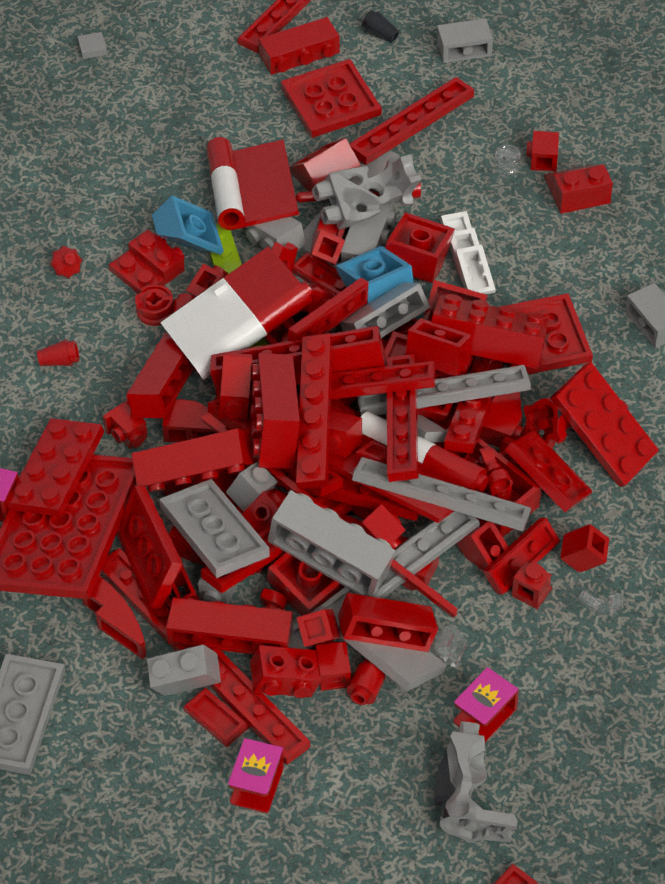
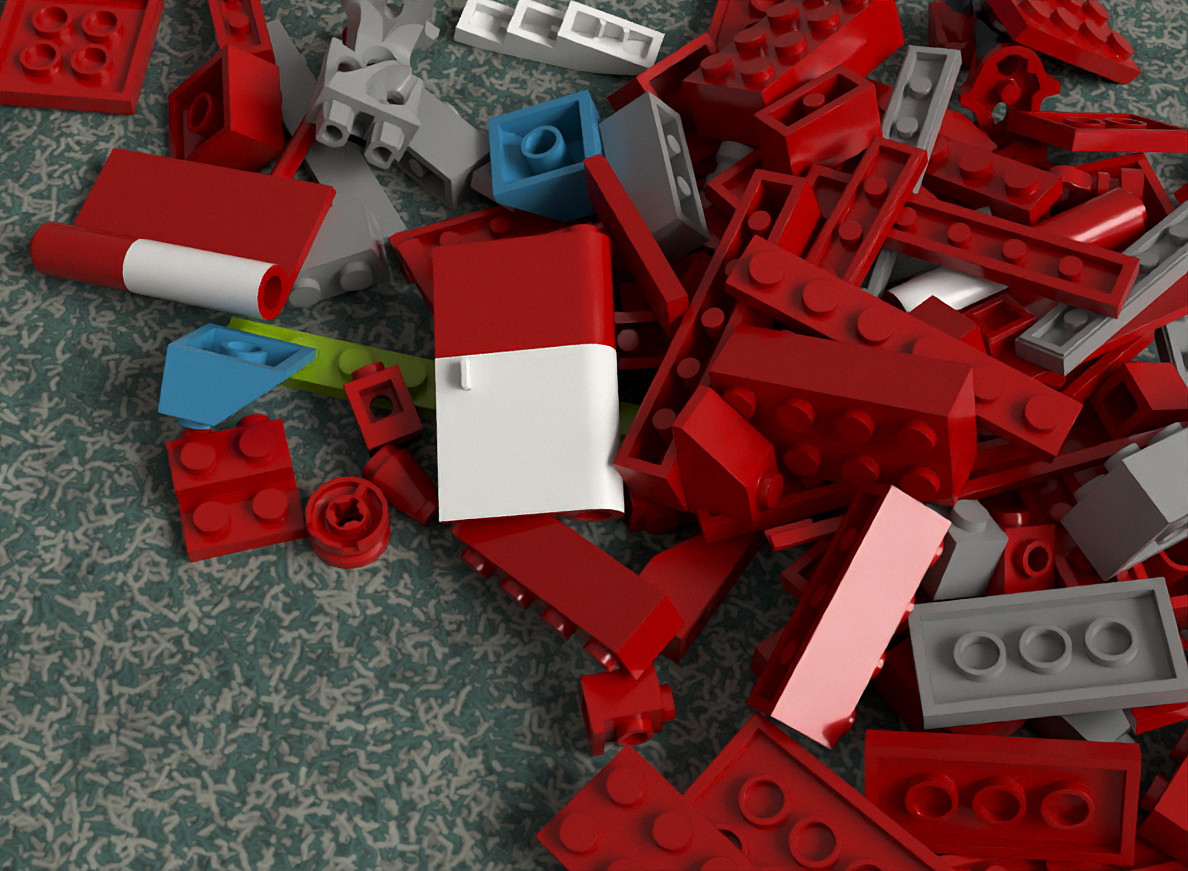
camera: 65 degrees left, 5 degrees up
(59, 354) = (356, 746): red cone -> none
(66, 262) = (125, 624): red piece -> none
(327, 242) = (417, 195): red slope -> none
(421, 245) = (508, 70): red slope -> none

